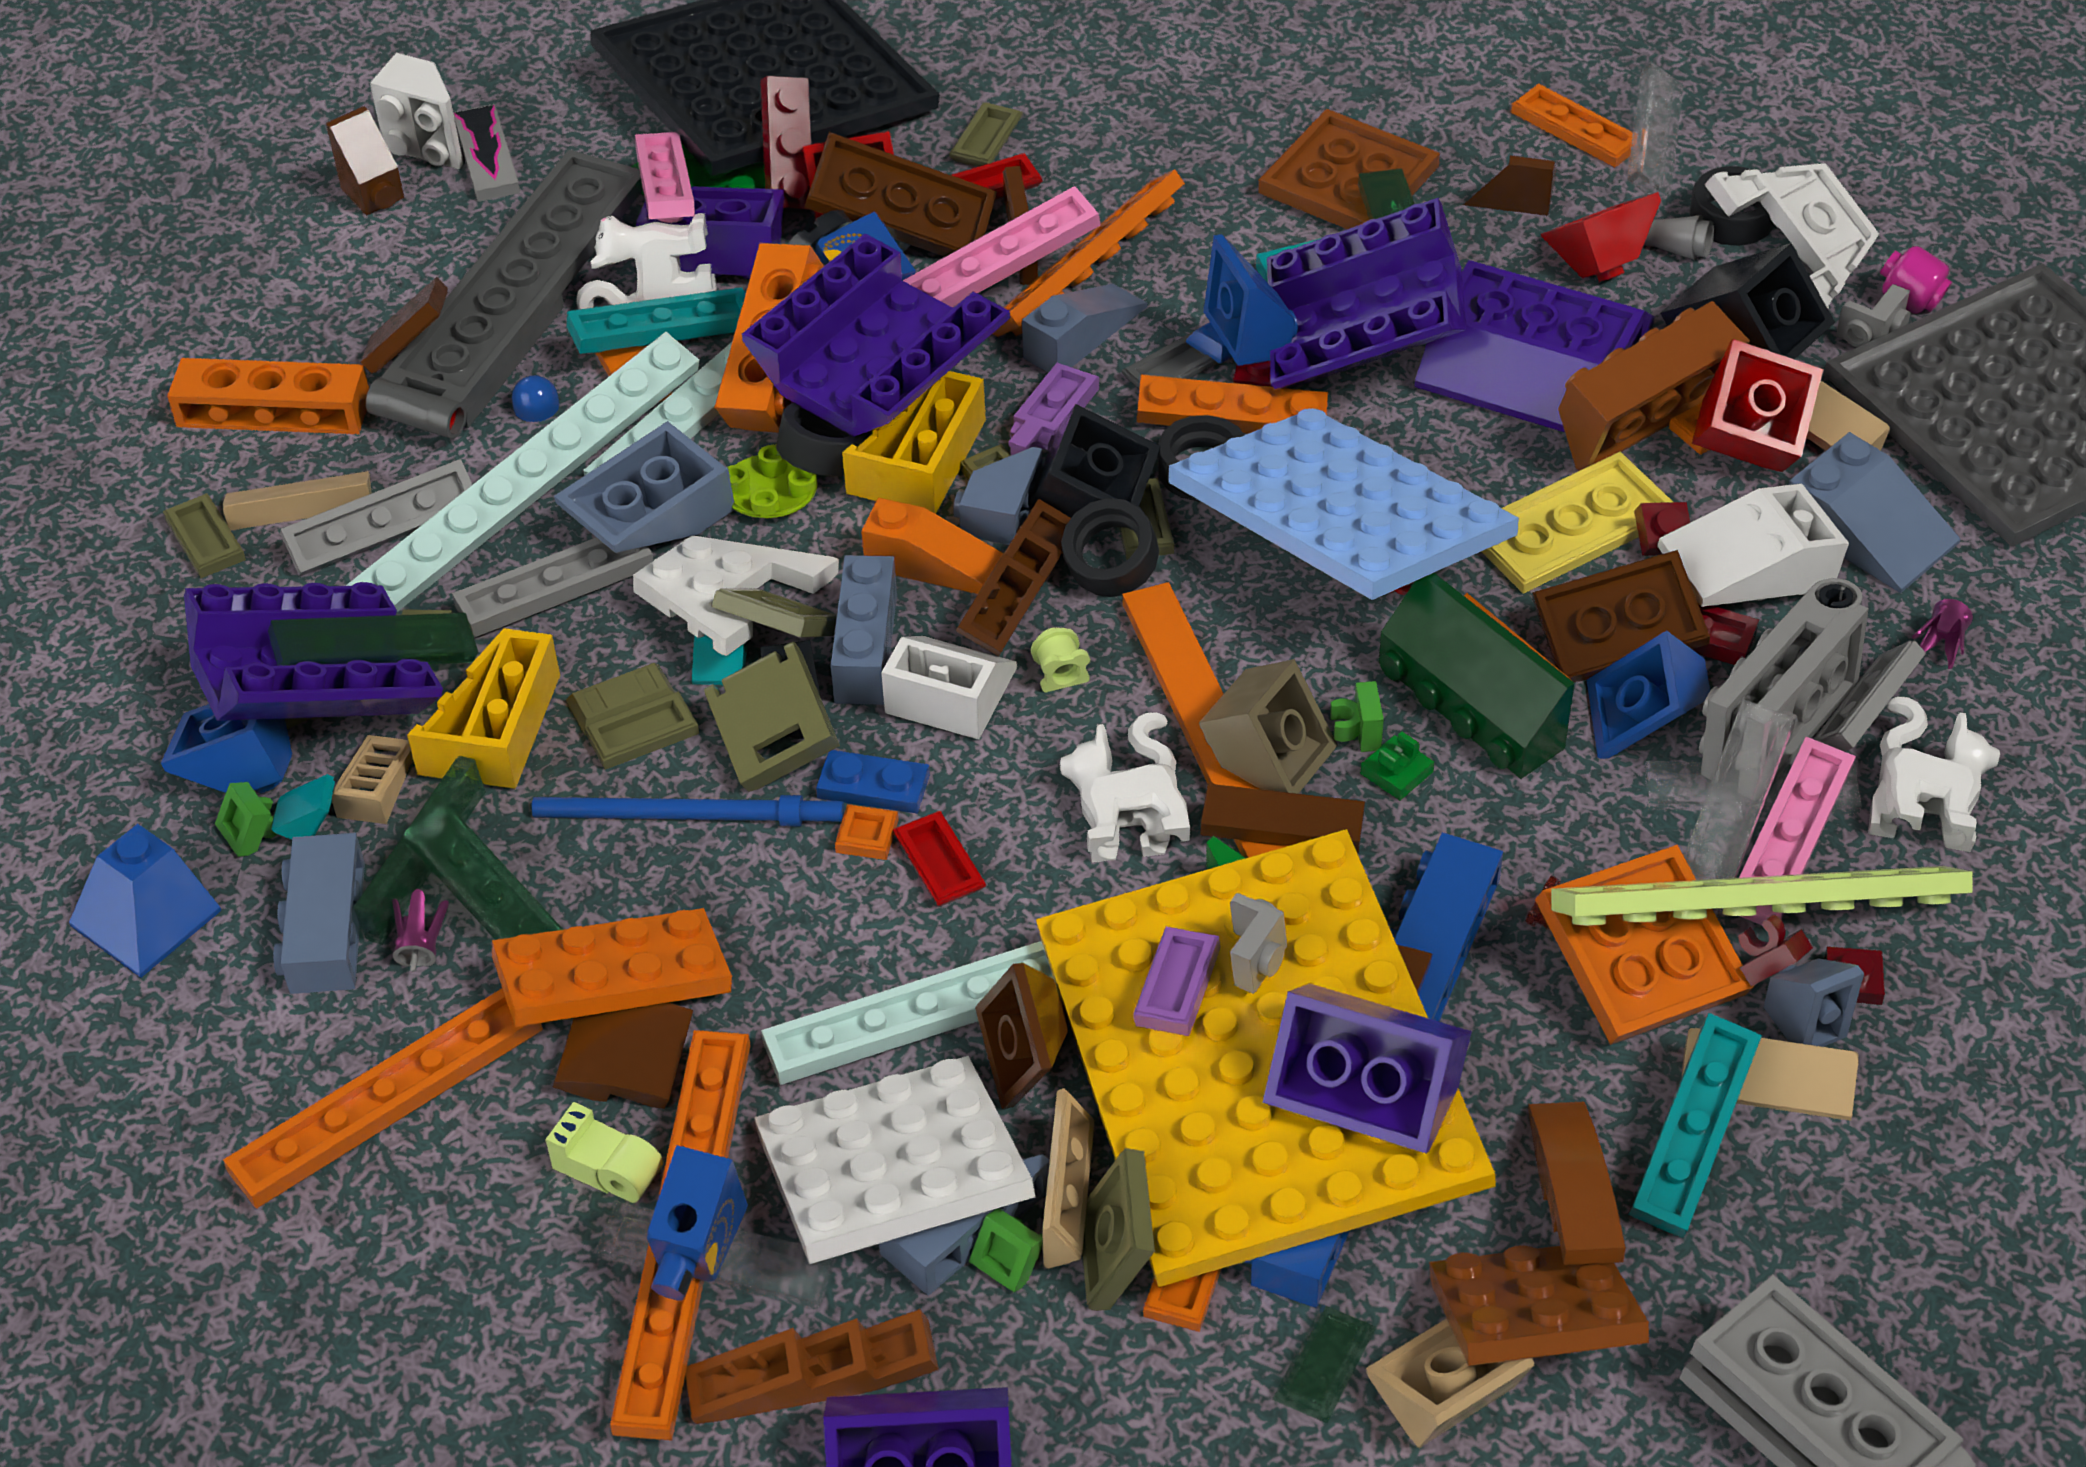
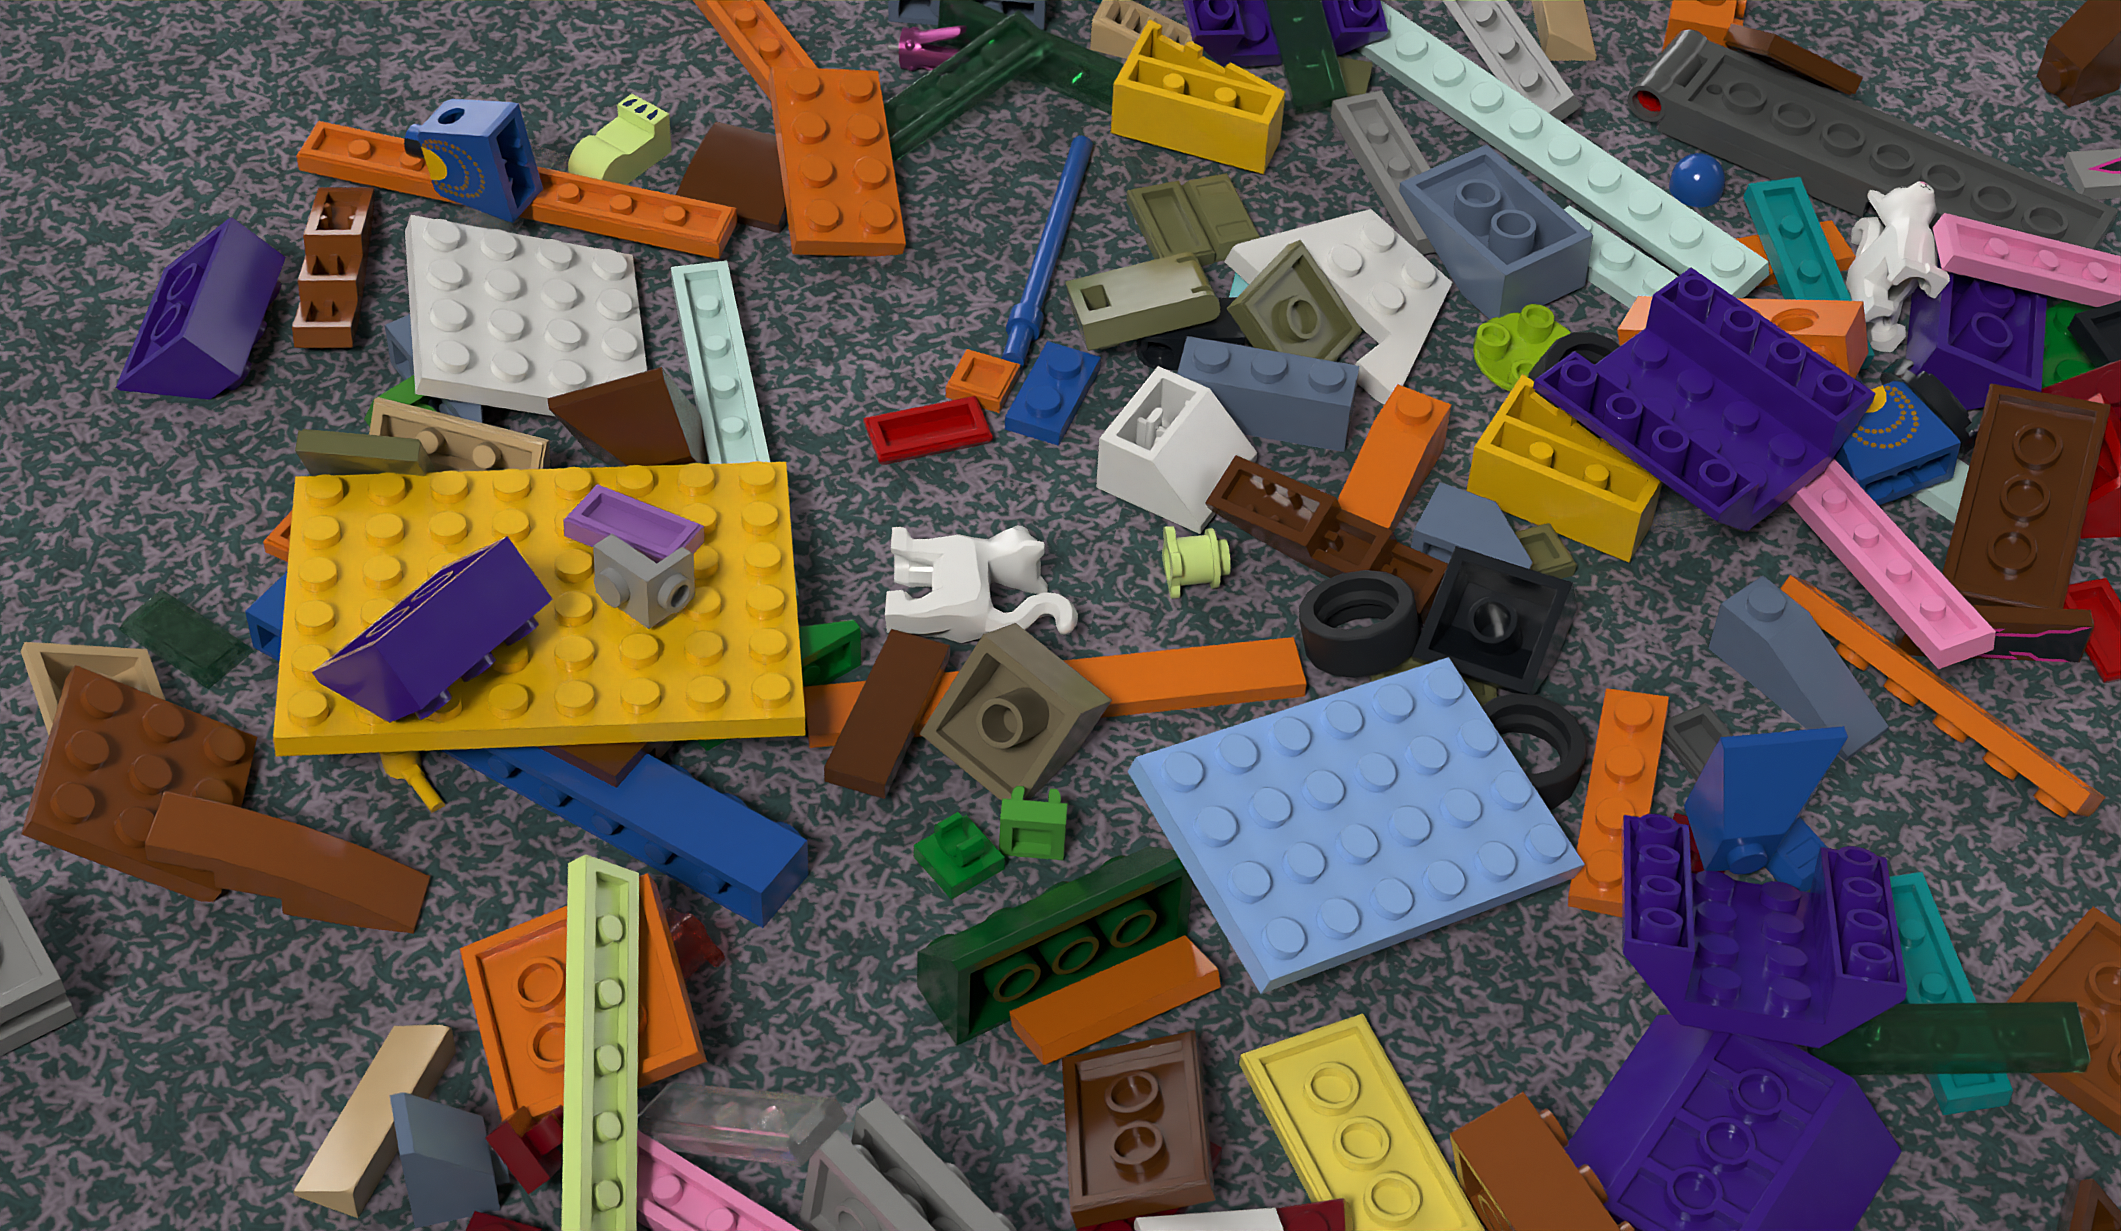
camera: 95 degrees right, 0 degrees up
(1049, 406) = (1635, 618): medium lavender hinge -> none
(1645, 692) = (995, 1136): blue slope -> none
(1695, 1125) = (319, 999): teal plate -> none

